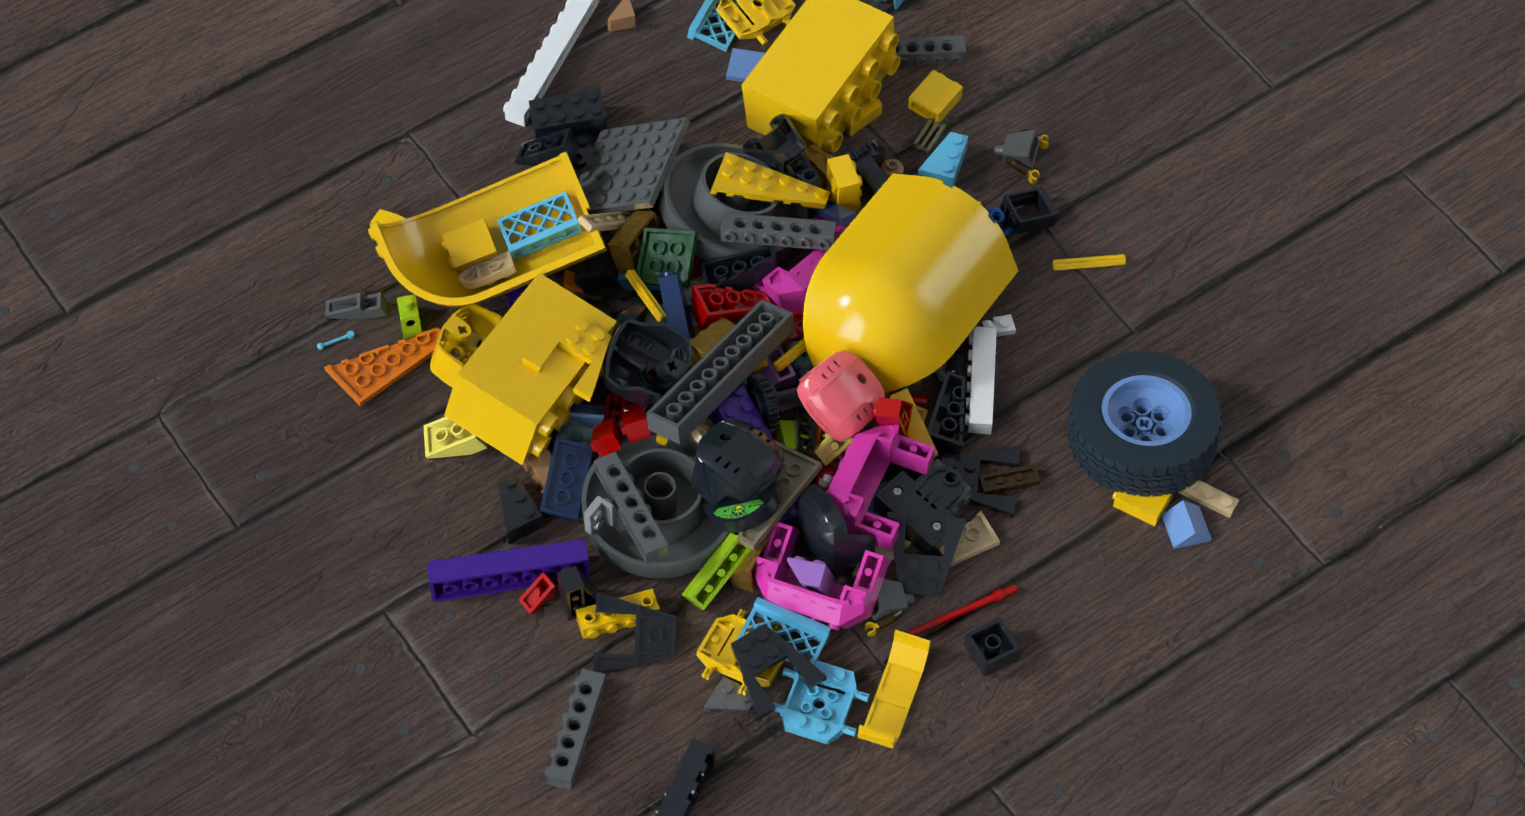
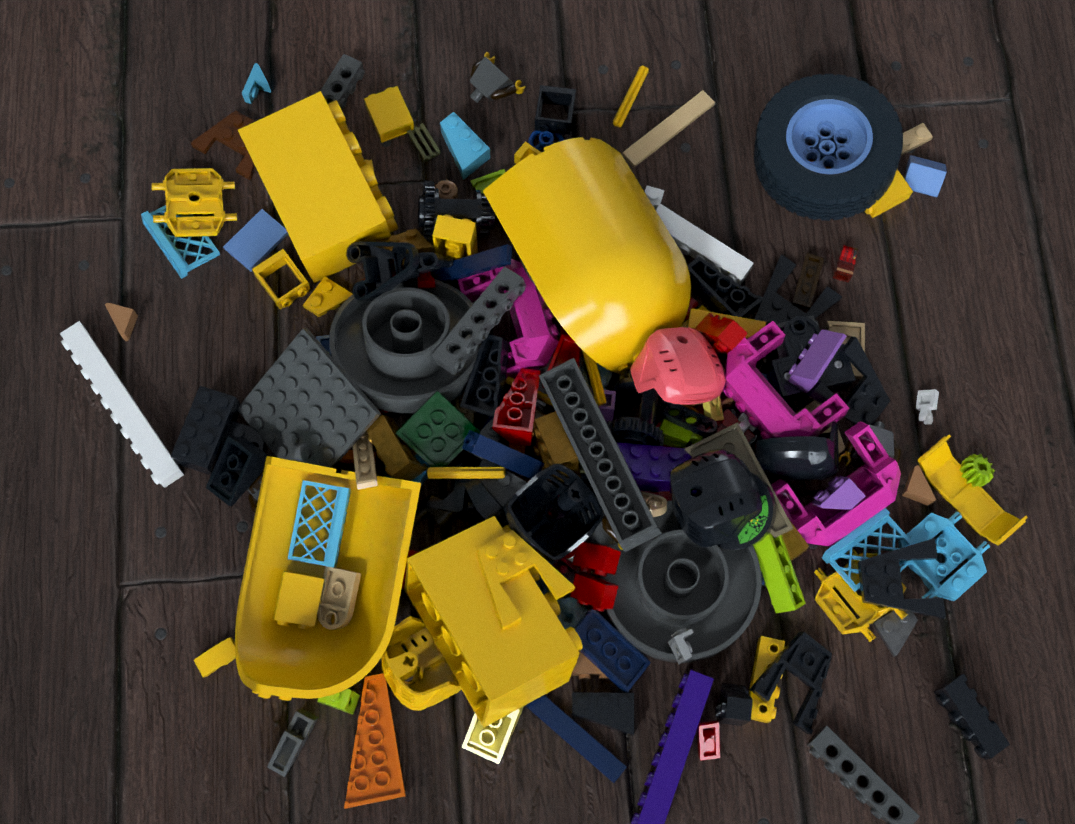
camera: 60 degrees left, 15 degrees up
(350, 334) = (313, 798): medium azure hinge -> none
(482, 499) = (577, 738): none -> dark blue tile
(649, 548) = (751, 622): dark grey brick -> none
(729, 84) = (271, 265): none -> yellow window
(737, 135) = (326, 297): none -> yellow wing
(764, 184) = (413, 308): yellow wing -> none
(872, 652) = (918, 487): none -> medium nougat slope
(919, 692) = (977, 470): none -> lime gear
(922, 499) = (815, 359): none -> medium lavender slope
(958, 626) = (927, 401): none -> white plate
(992, 647) = (965, 388): black brick -> none
(997, 595) = (911, 356): red bar -> none
(1049, 501) = (846, 263): none -> leg
(1080, 305) = (668, 128): none -> tan tile

